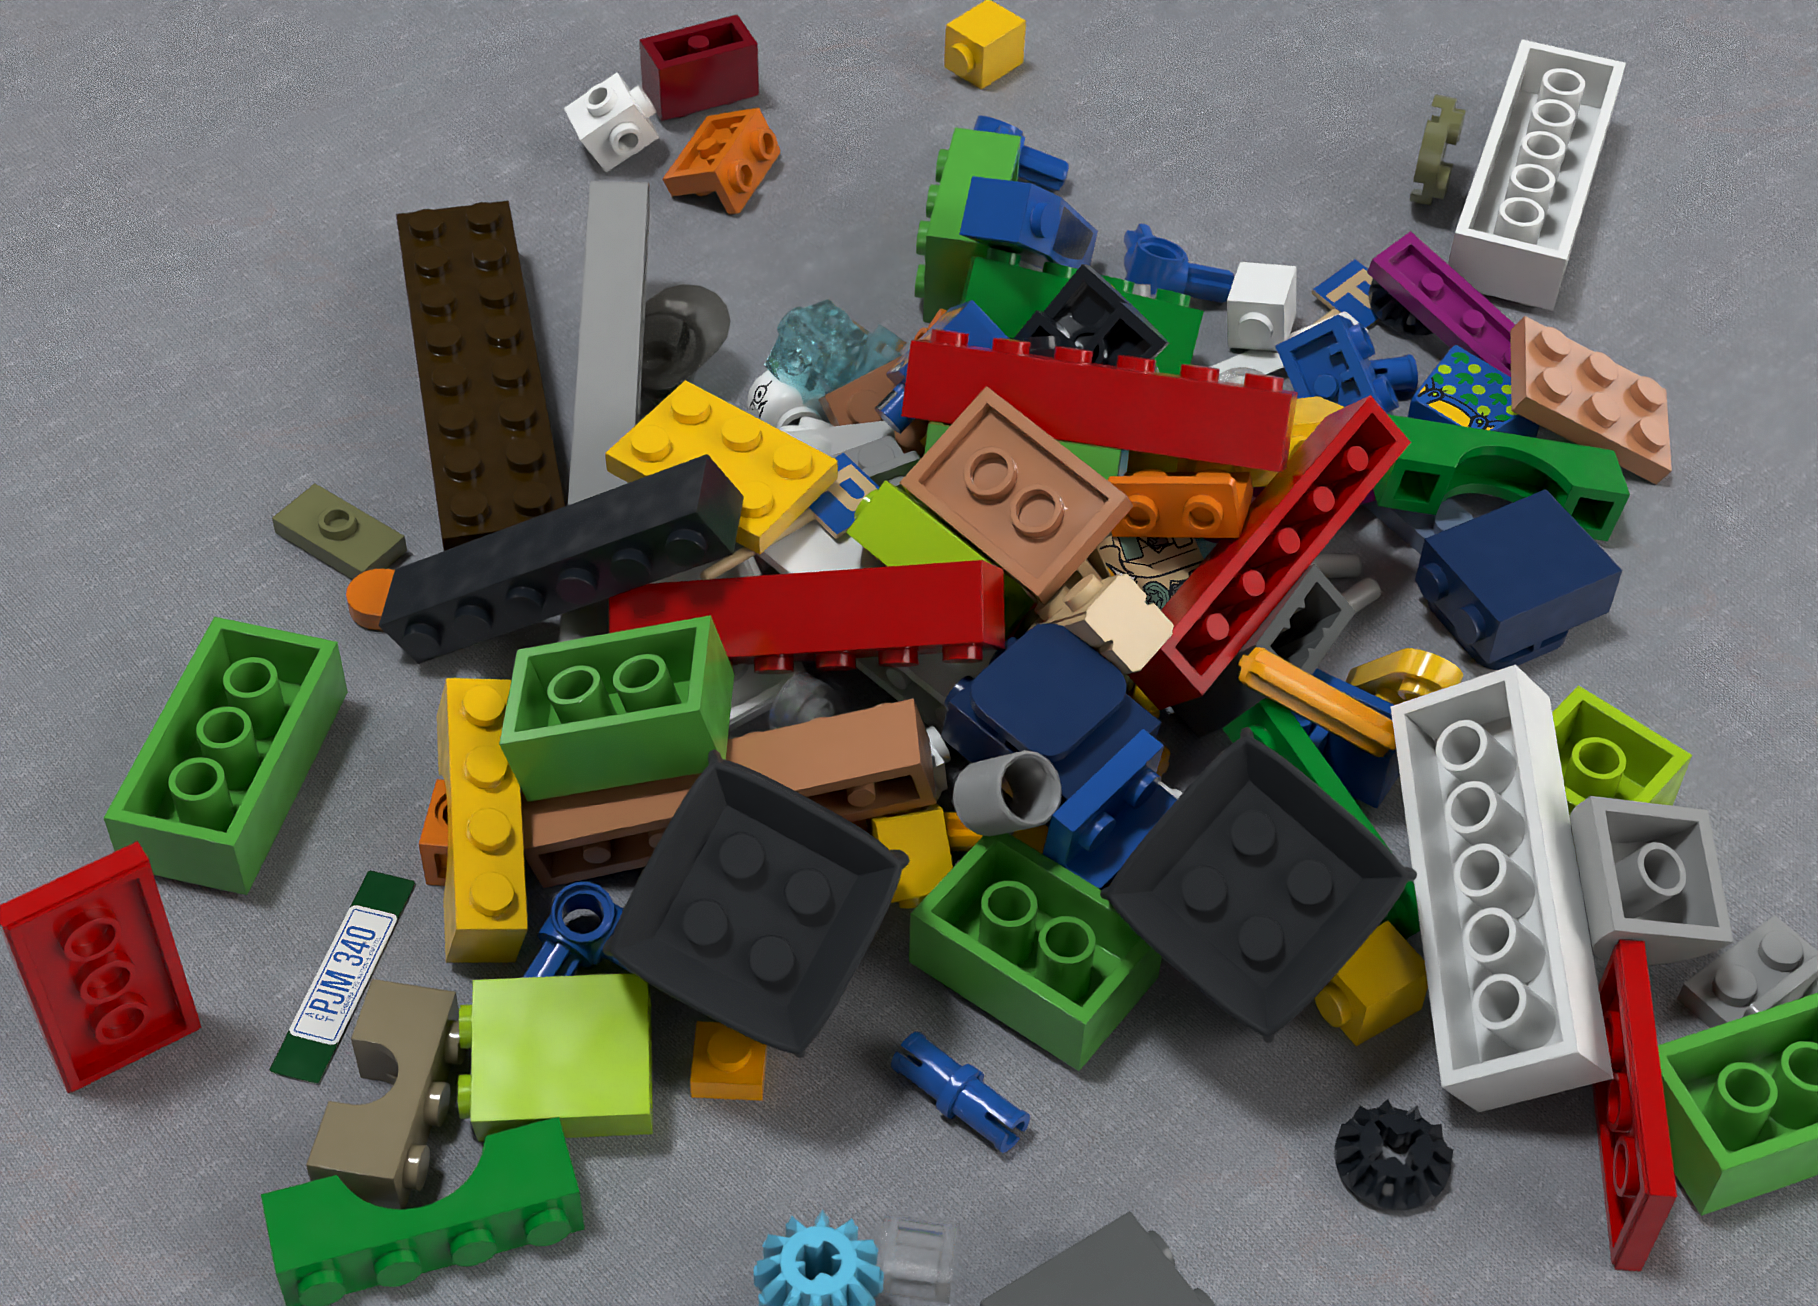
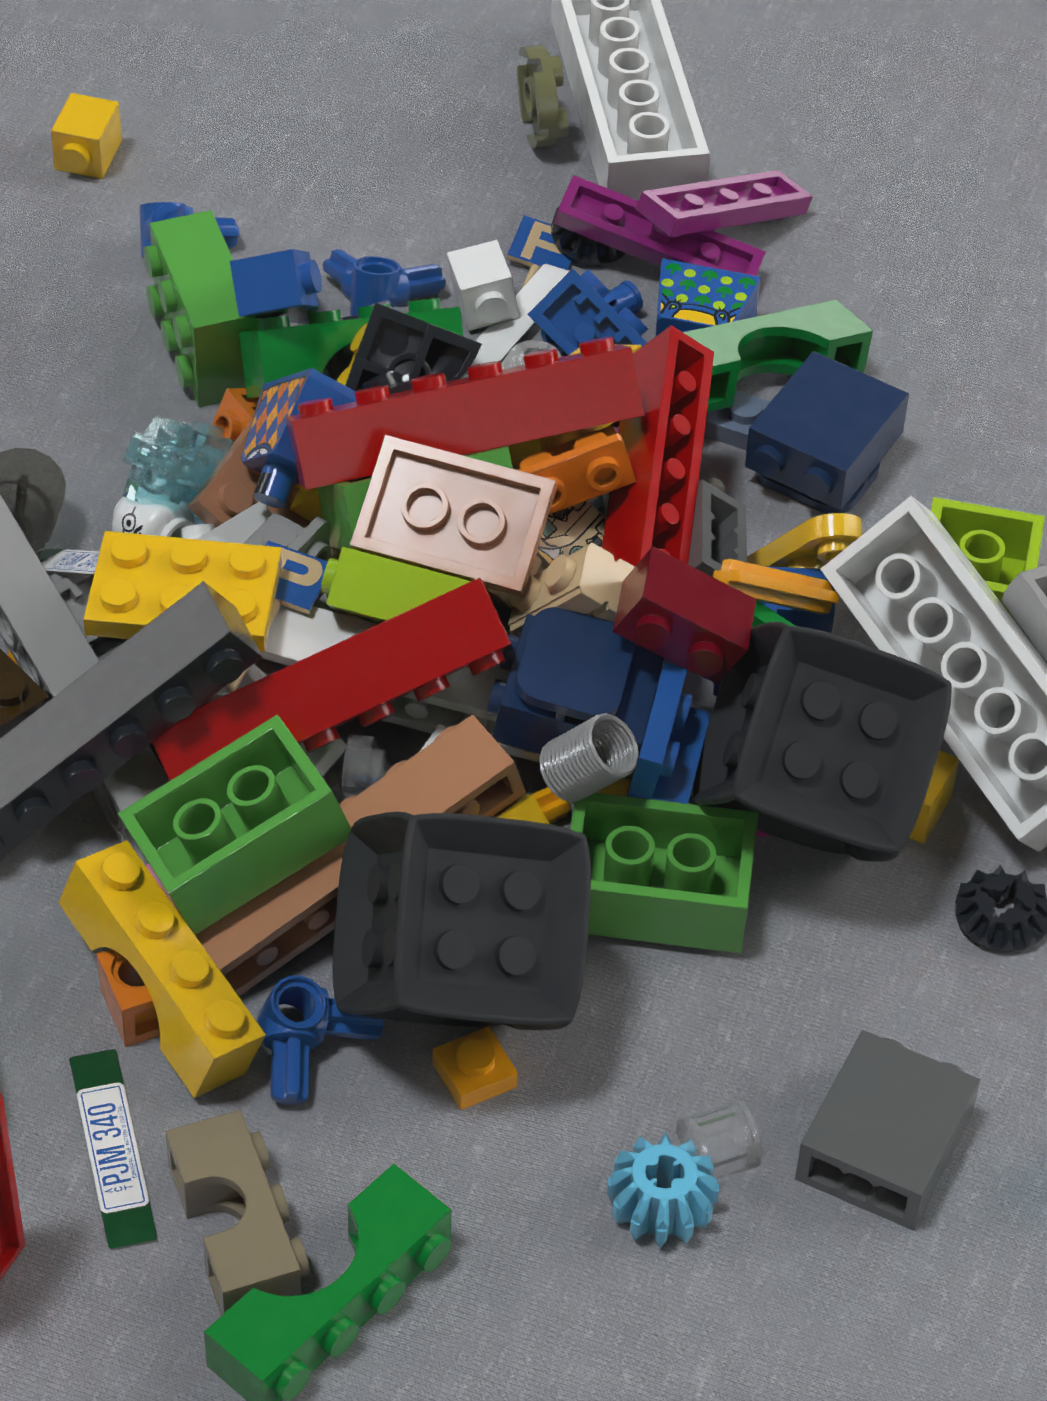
camera: 30 degrees left, 0 degrees up
(558, 1051) = (353, 1119): lime brick -> none
(960, 1091) = (667, 1008): blue pin -> none
(1183, 688) = (684, 615): none -> dark red brick
(1589, 320) = (723, 203): none -> magenta plate
(1589, 399) = (789, 263): nougat plate -> none

